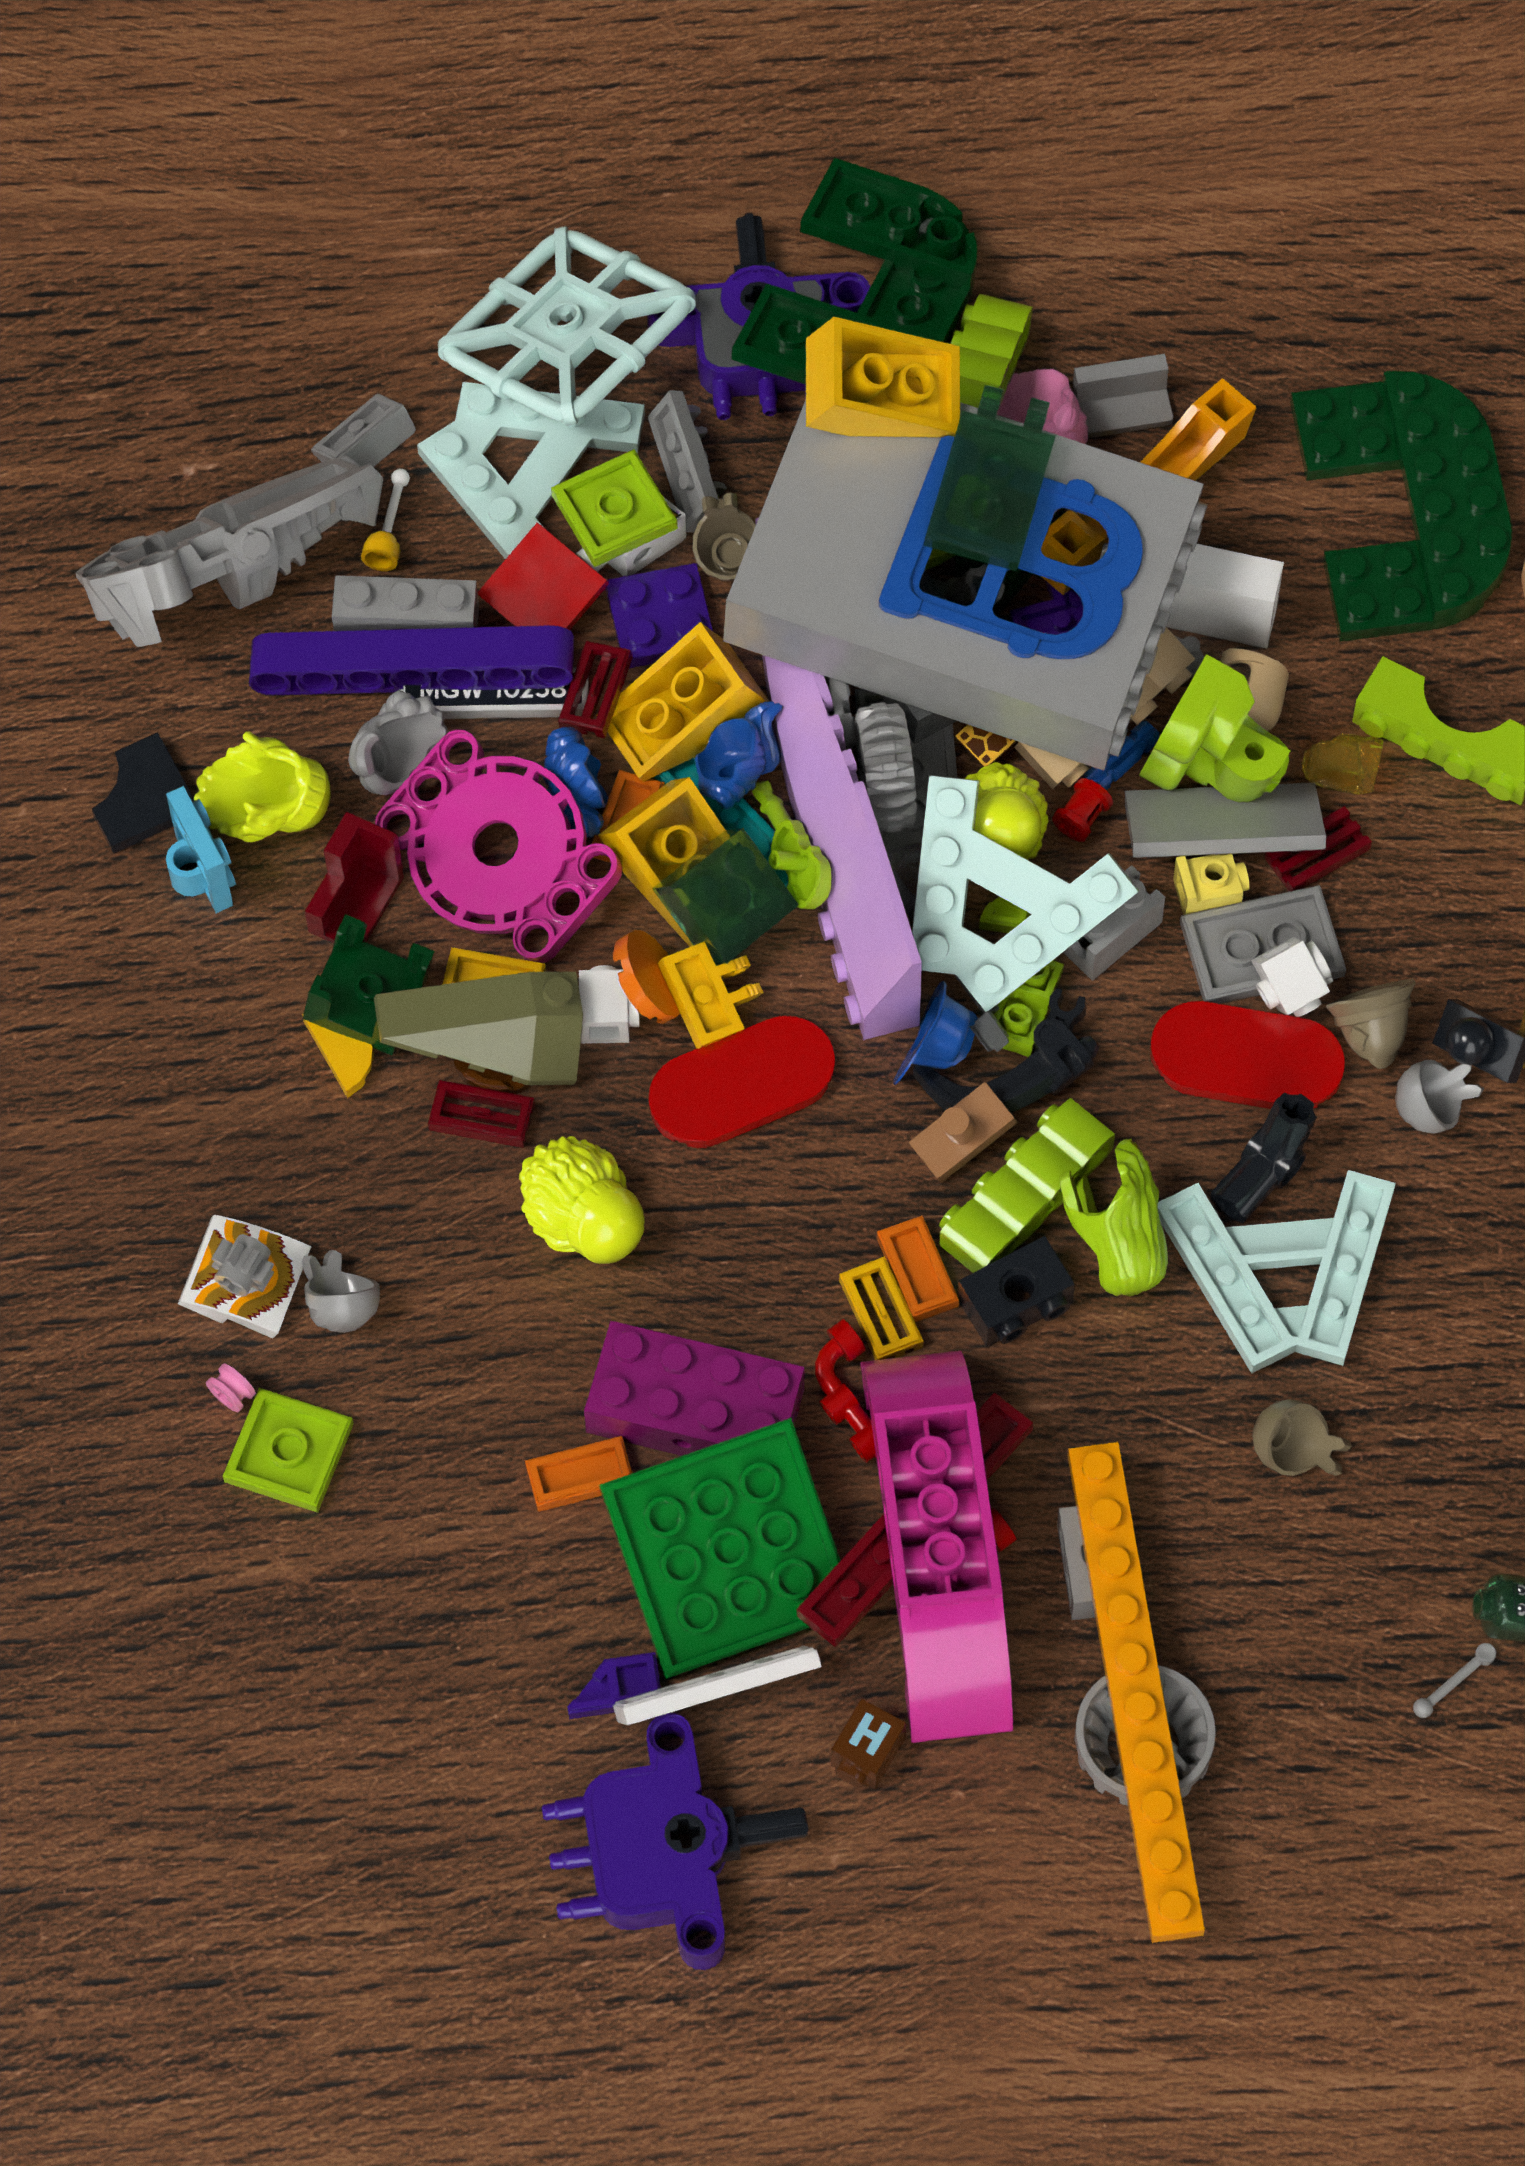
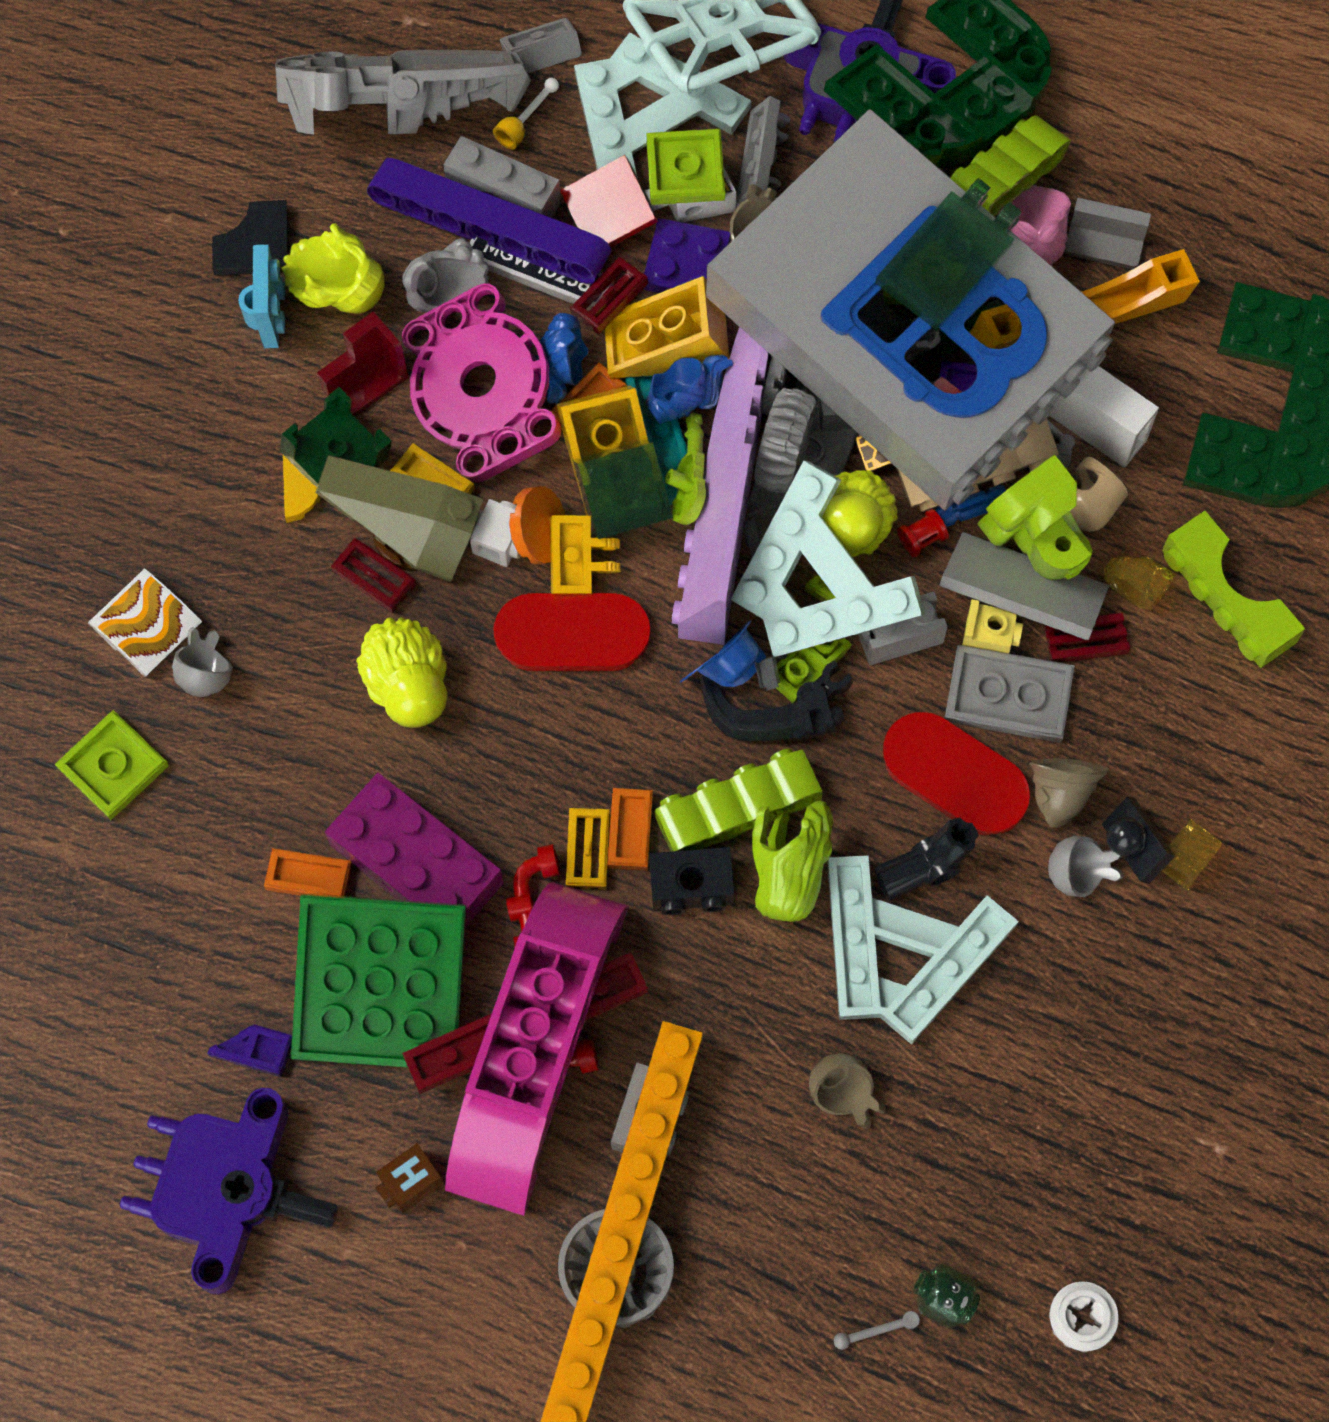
camera: 25 degrees right, 5 degrees up
(230, 1388) = (92, 701): bright pink bush -> none
(242, 1265) = (138, 615): light grey gear -> none
(716, 1685) = (319, 1082): white tile -> none
(880, 382) = (901, 145): yellow slope -> none
(962, 1132) = (712, 740): medium nougat tile -> none
(1293, 977) = (1016, 728): white brick -> none

